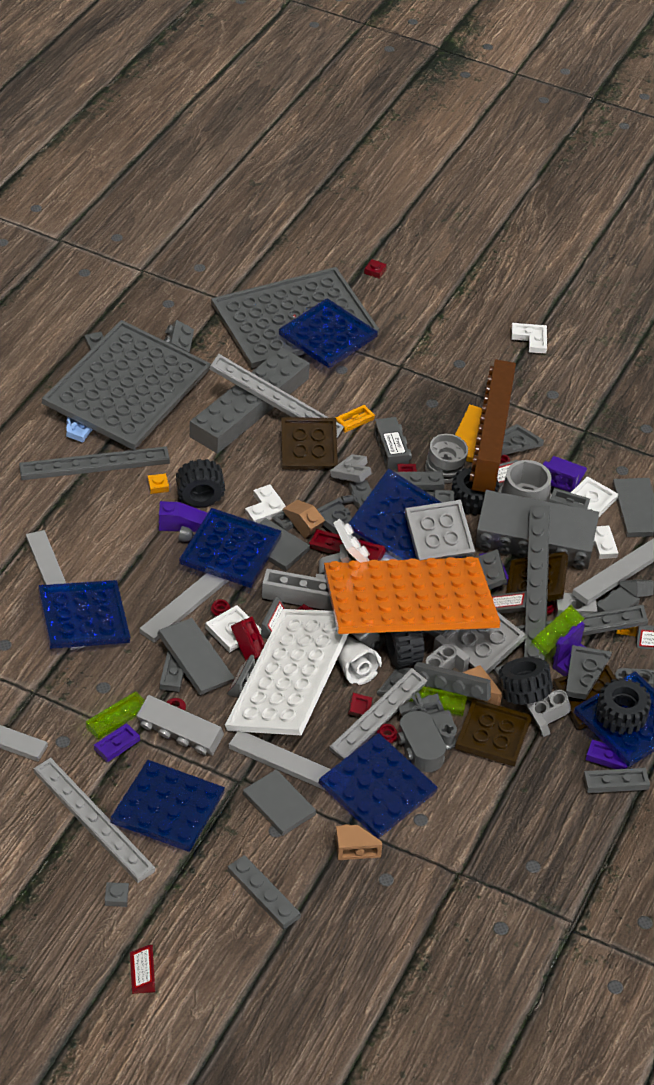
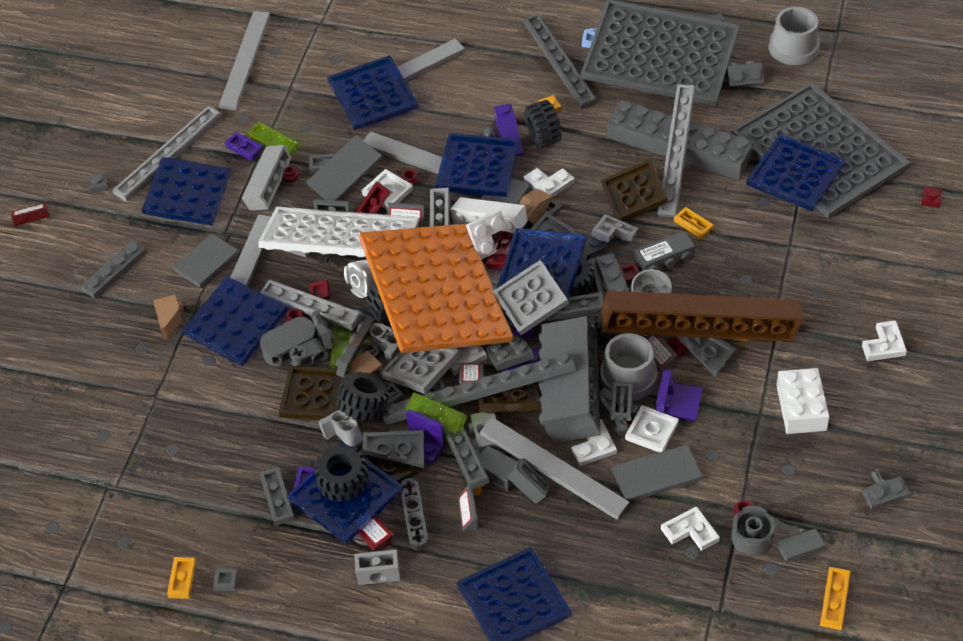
camera: 85 degrees right, 5 degrees up
(150, 290) = (795, 36): none -> light grey piece
(310, 546) = (469, 210): none -> white brick
(584, 397) = (802, 401): none -> white brick

